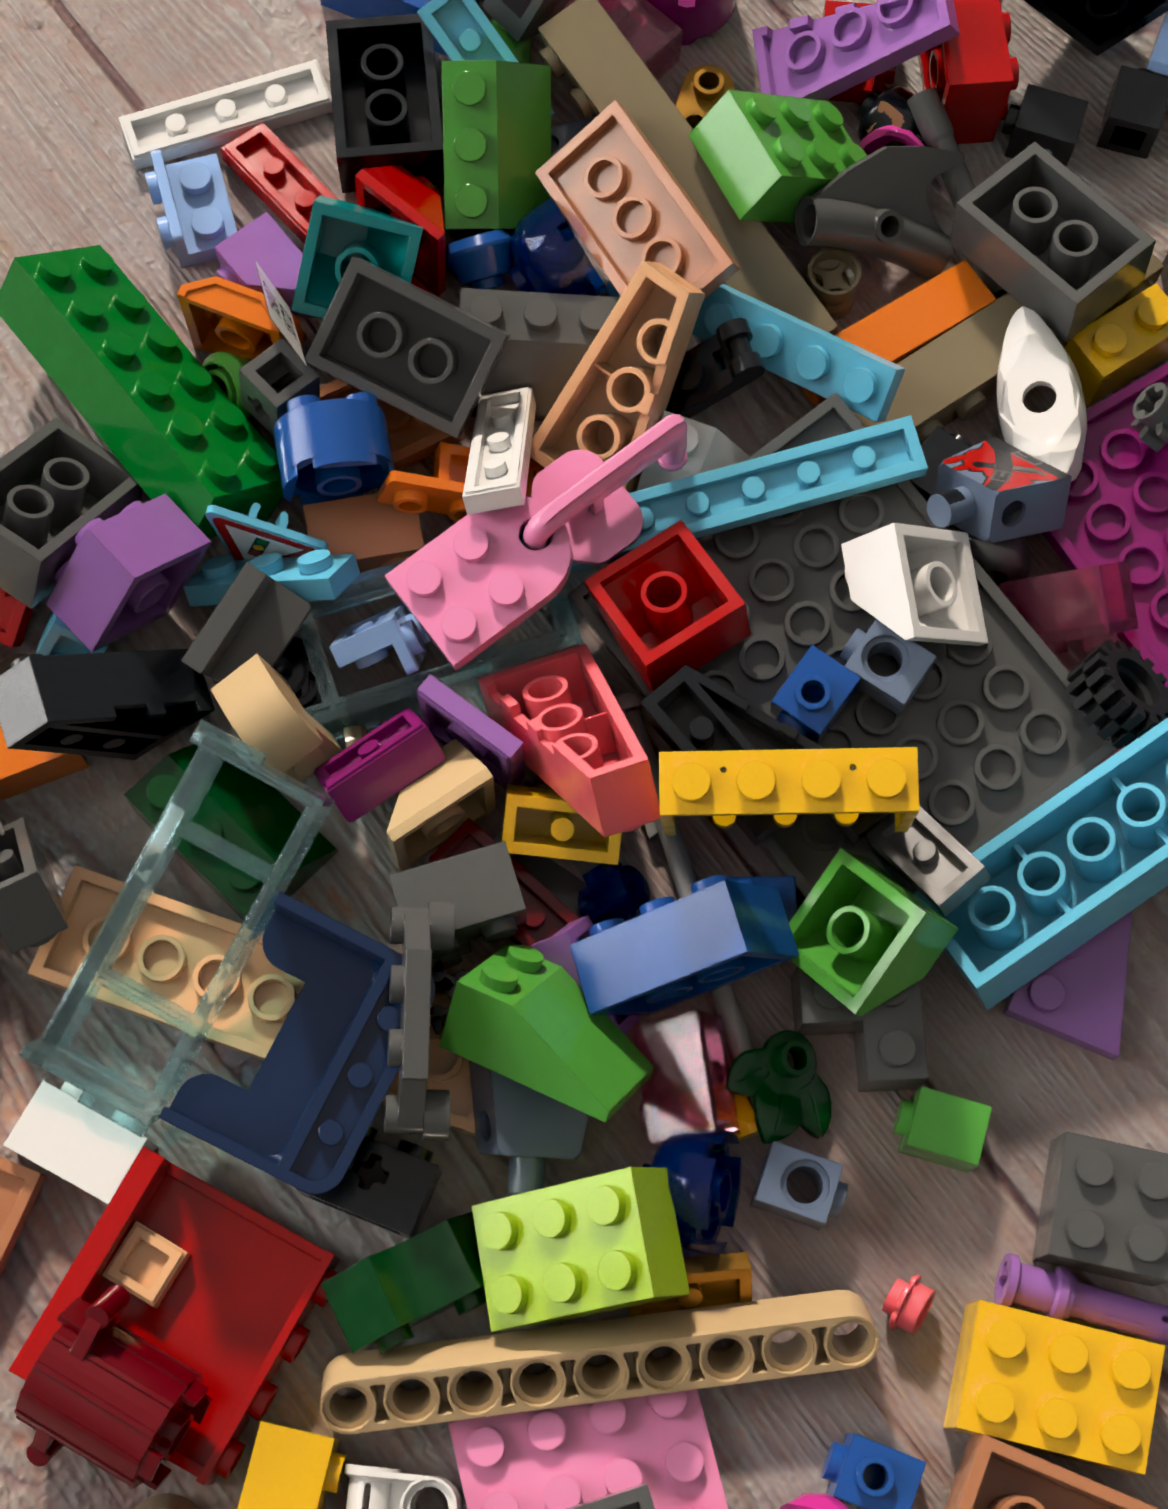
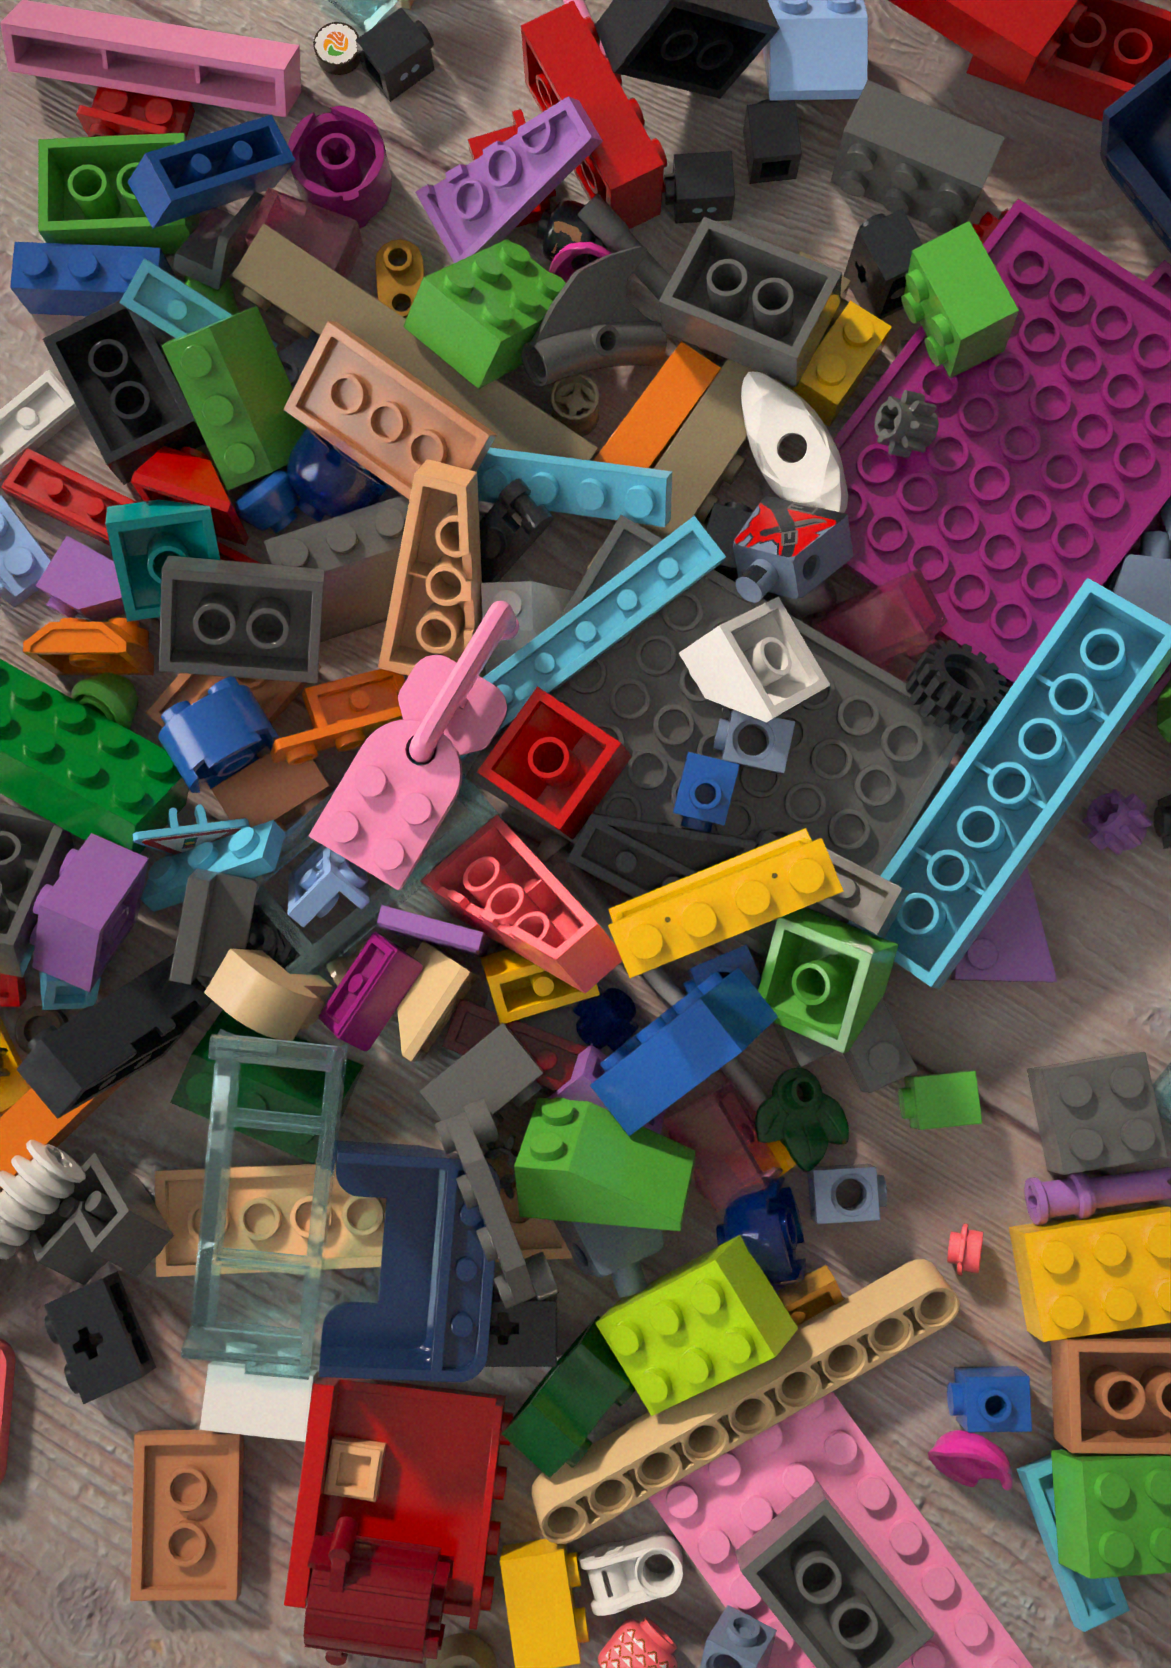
camera: 15 degrees left, 10 degrees up
(273, 381) = (145, 694): dark grey brick -> none
(280, 313) = (120, 634): white sticker -> none
(500, 451) = (359, 681): white tile -> none

